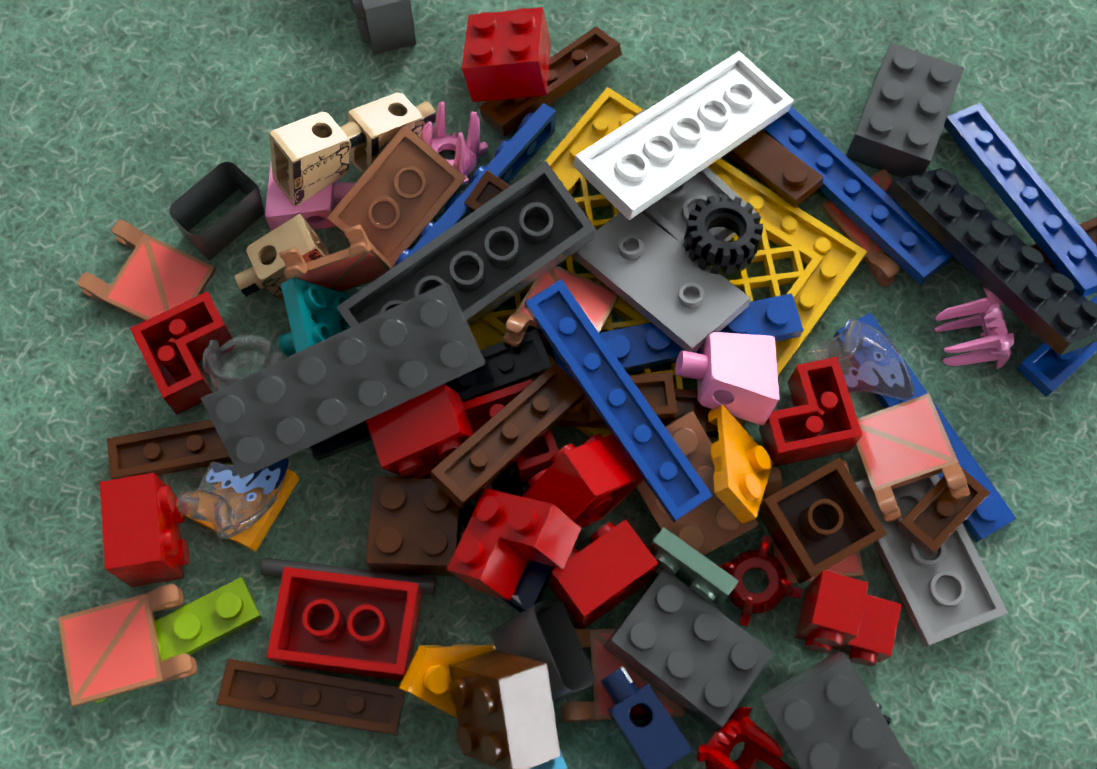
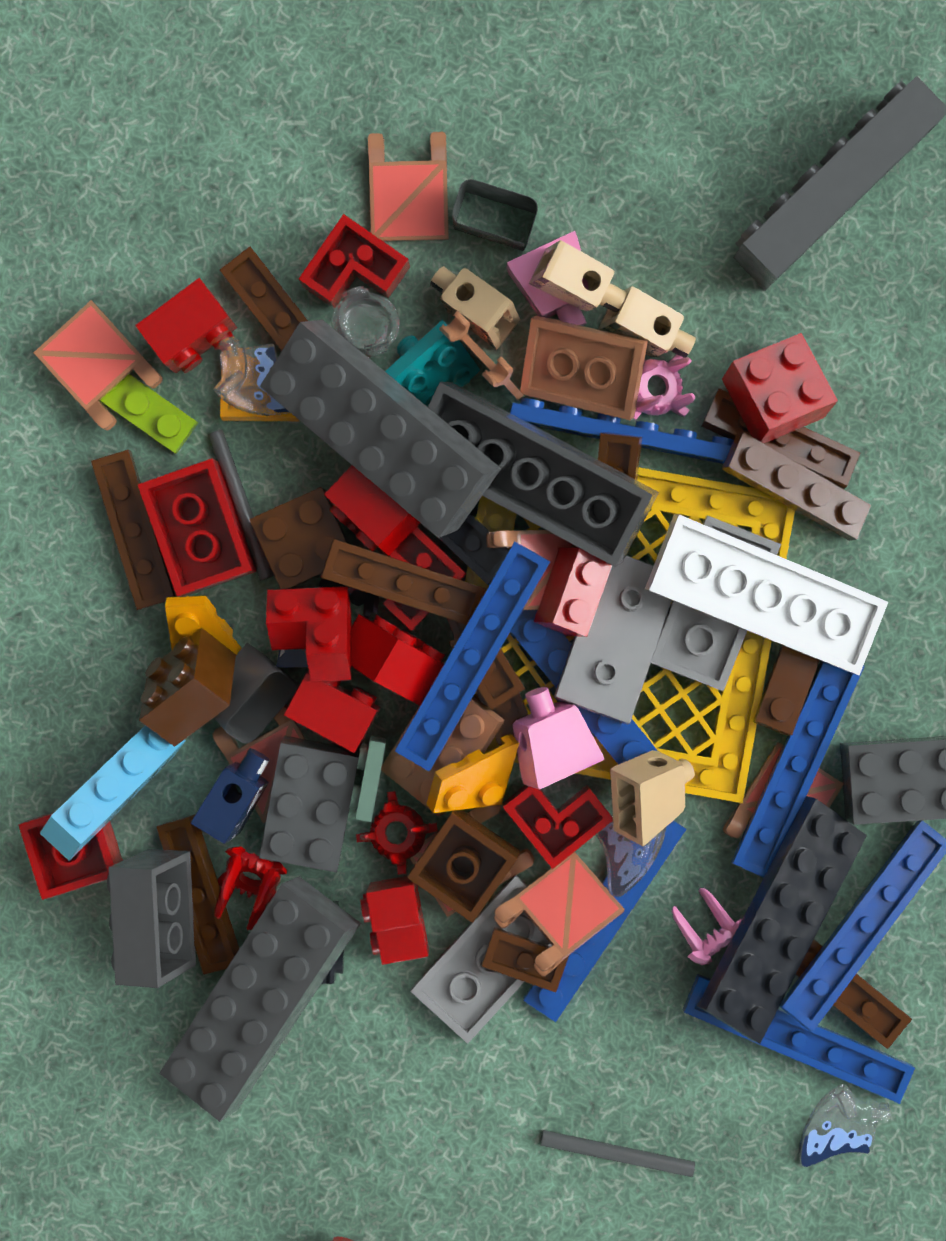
camera: 70 degrees right, 20 degrees up
(598, 81) = (796, 486): none -> plate
(602, 288) = (573, 592): none -> brick
(729, 216) = (700, 668): black tyre -> none
(816, 306) = (648, 794): none -> tan torso

